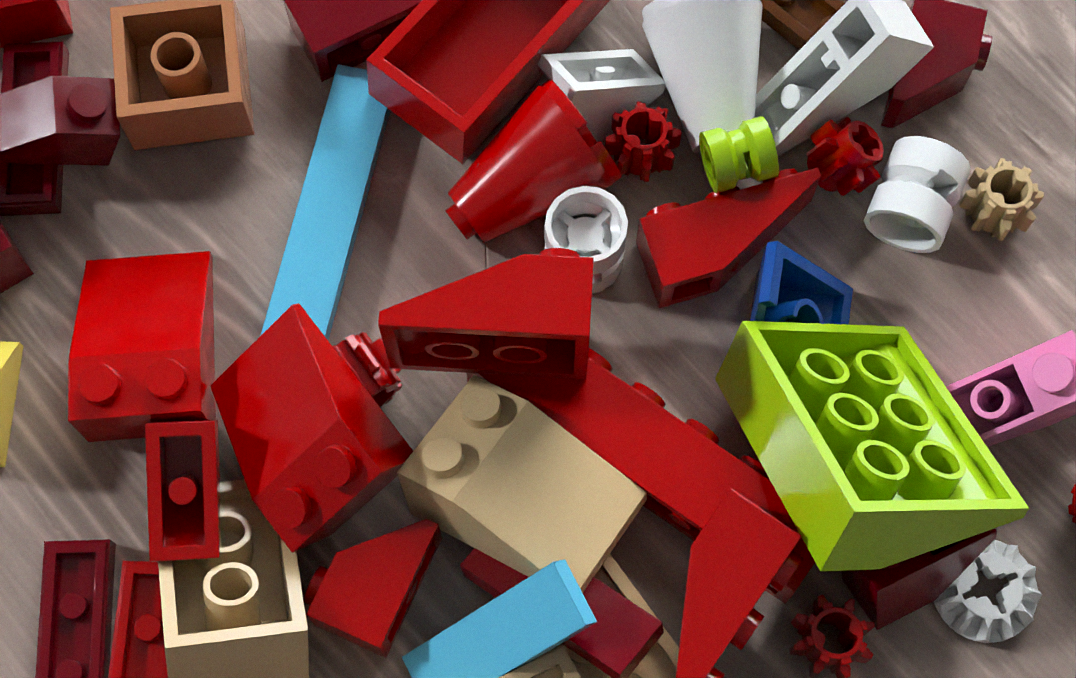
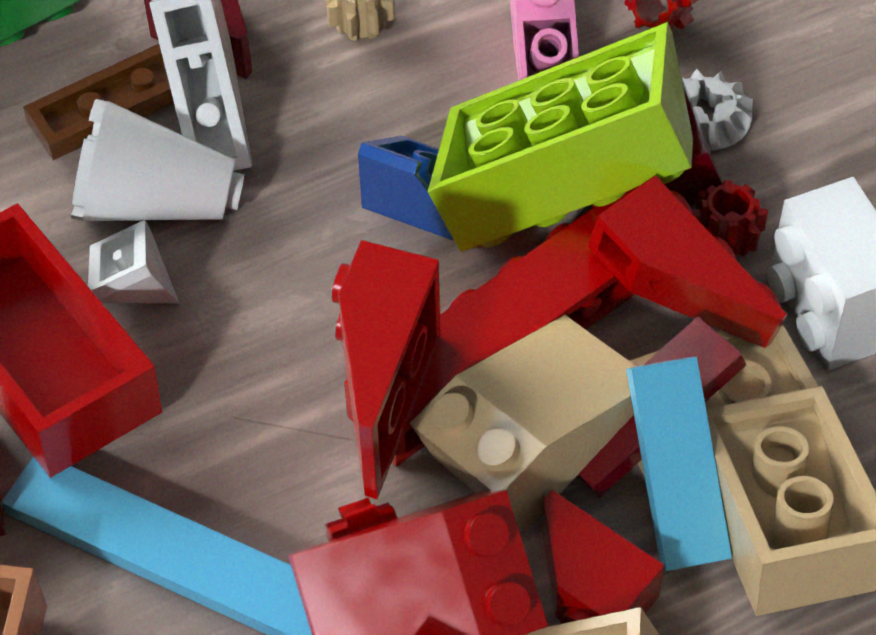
camera: 75 degrees left, 15 degrees down
(528, 166) = (197, 335): red cone -> none
(591, 225) = (291, 314): white wheel -> none
(658, 136) = (200, 250): red gear -> none
(705, 243) = (322, 211): red slope -> none
(739, 154) = (255, 169): lime wheel -> none
(845, 155) = (278, 98): red gear -> none
(917, 194) = (341, 56): white wheel -> none

